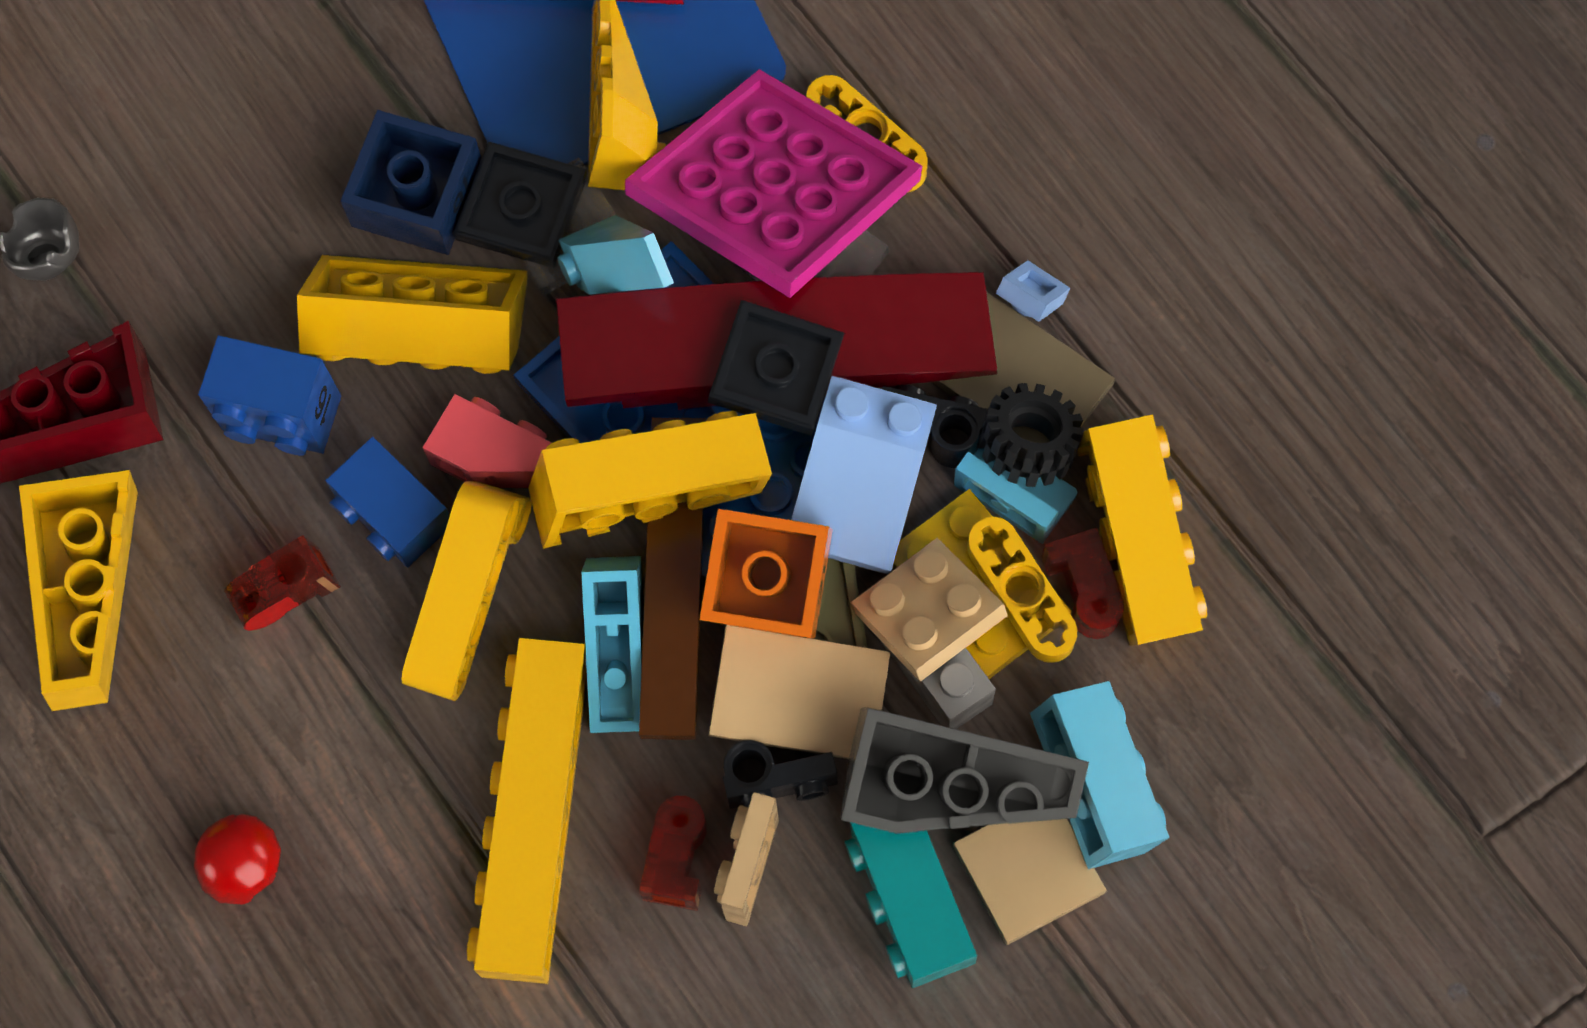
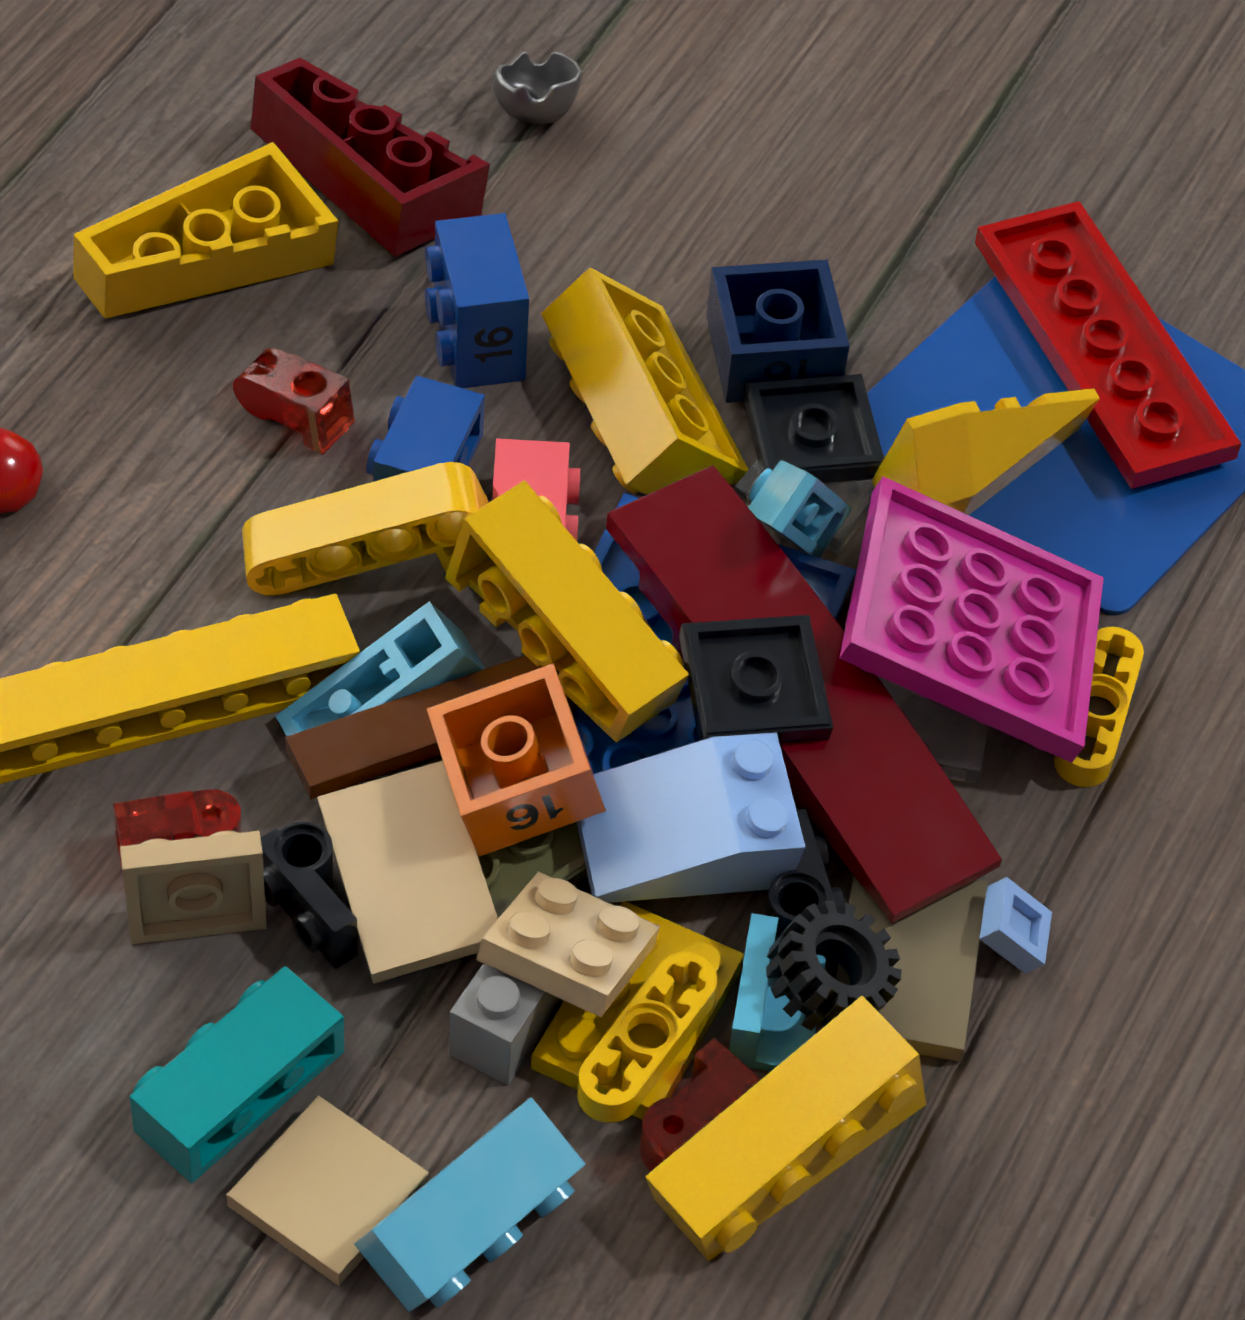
camera: 55 degrees right, 20 degrees down
(935, 777) = (375, 1017): dark grey wedge -> none

